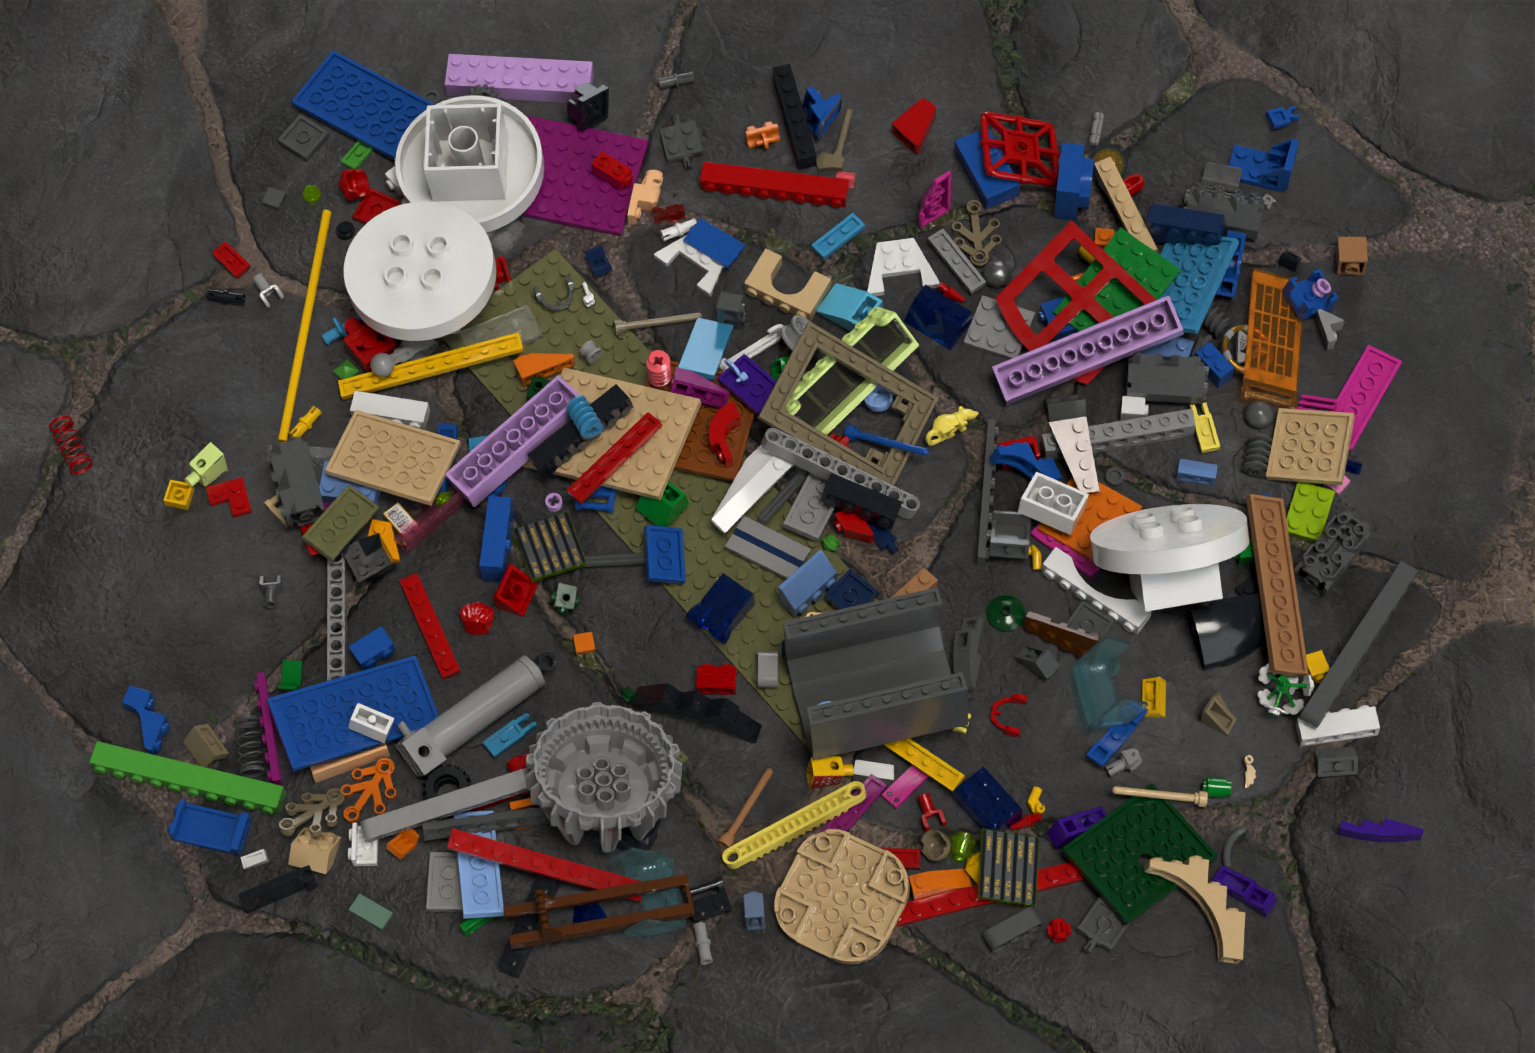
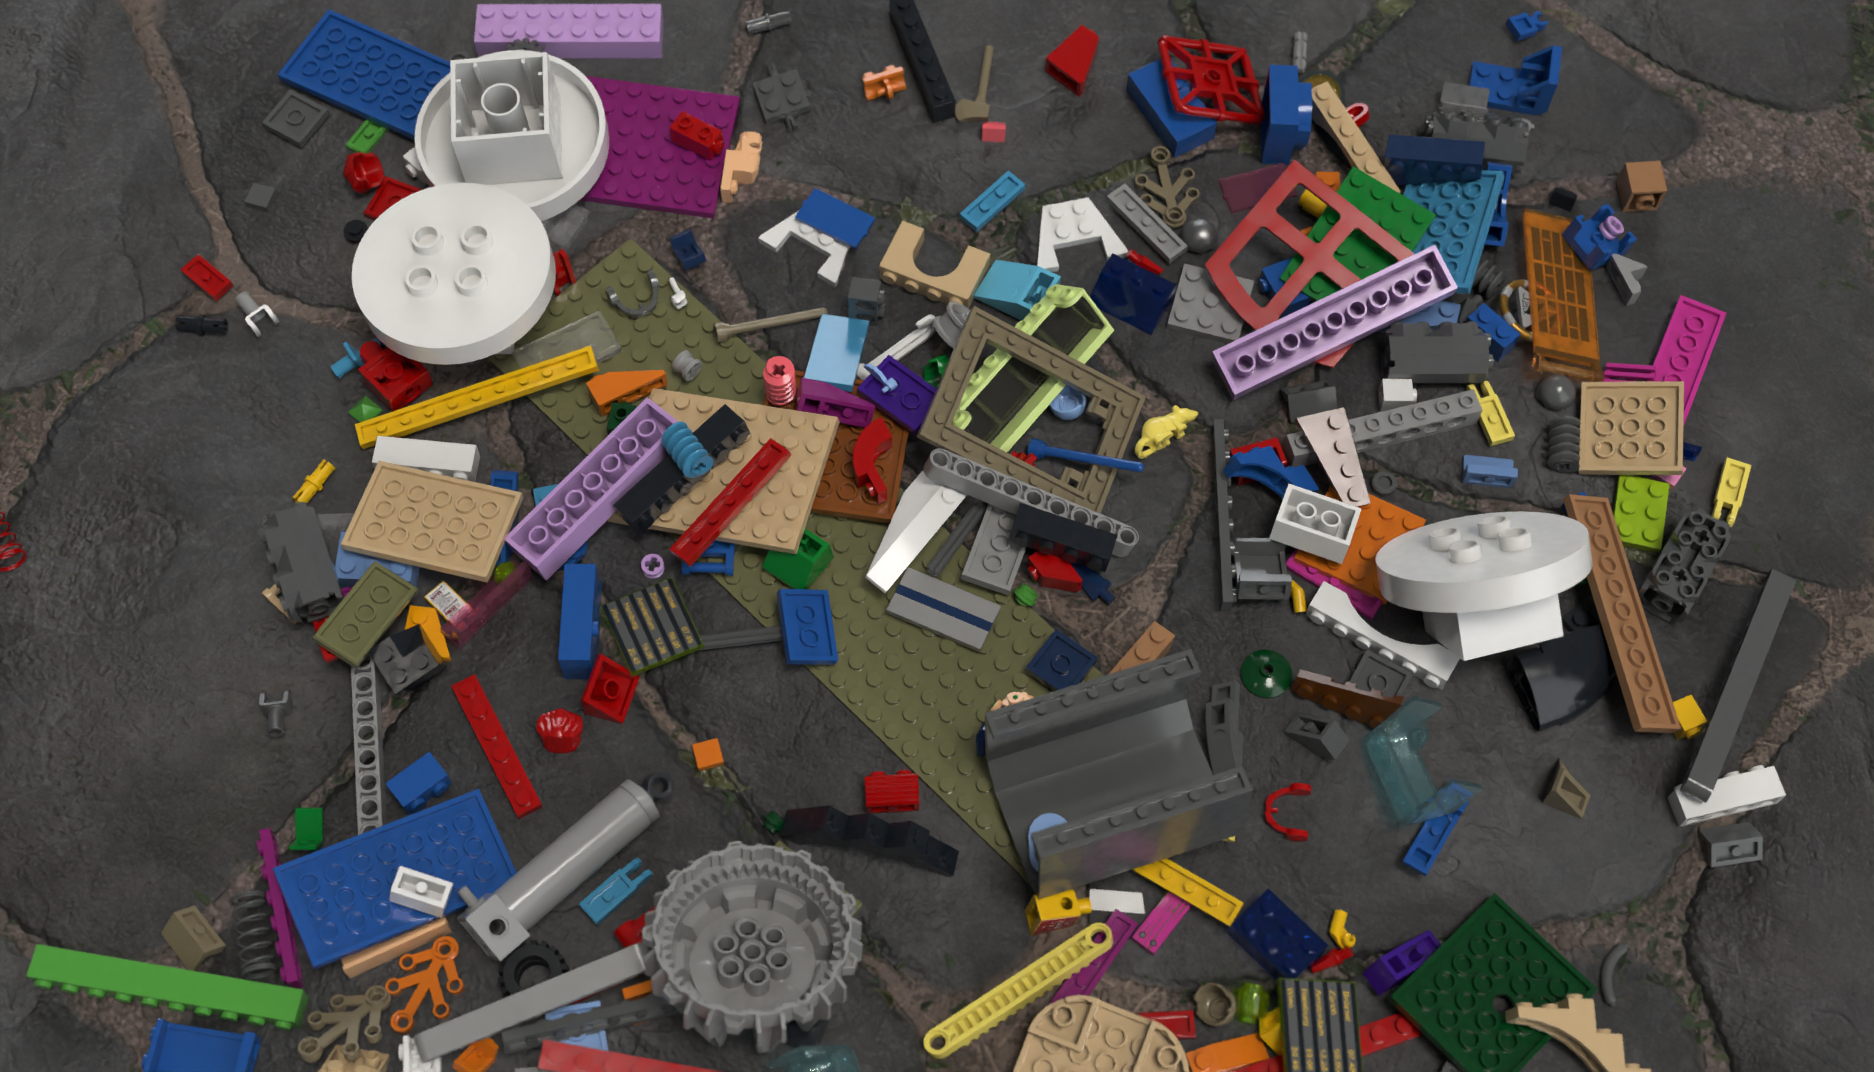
camera: 10 degrees left, 0 degrees up
(152, 723) = (115, 913): blue arch -> none
(178, 495) = (145, 590): yellow piece -> none
(206, 466) = (181, 549): yellowish green torso -> none
(232, 492) = (217, 581): red plate -> none
(304, 326) = (307, 359): yellow piece -> none
(311, 194) = (309, 187): clear neon green plate -> none
(383, 363) = (447, 378): light grey beam -> none
(569, 593) = (681, 686): brick -> none
(590, 107) = (663, 57): black panel -> none
(672, 213) = (776, 186): clear red plate -> none
(677, 230) = (786, 205): white pin -> none
(722, 608) = (891, 694): clear blue piece -> none
(727, 839) = (927, 1017): medium nougat piece -> none
(767, 669) = (960, 774): light grey beam -> none
(774, 184) = (904, 142): red brick -> none
(807, 584) = (1003, 654): medium blue slope -> none
(820, 112) = (954, 48): blue piece -> none
(929, 811) = (1200, 955): red piece -> none
(935, 200) = (1114, 146): dark pink wedge -> none
(1036, 238) = (1246, 189): none -> clear pink piece
(1129, 760) = (1457, 864): light grey piece -> none
(1155, 695) = (1476, 768): yellow slope -> none
(1197, 798) = (1561, 909): tan piece -> none
(1217, 787) = (1581, 892): green brick -> none
(1246, 890) = (1642, 1035): dark purple slope -> none
(1250, 771) = (1620, 866): tan piece -> none
(1284, 685) = (1651, 747): white plant -> none
(1382, 498) = (1731, 489): none -> light yellow hinge
(1388, 832) = (1815, 936): dark purple slope -> none

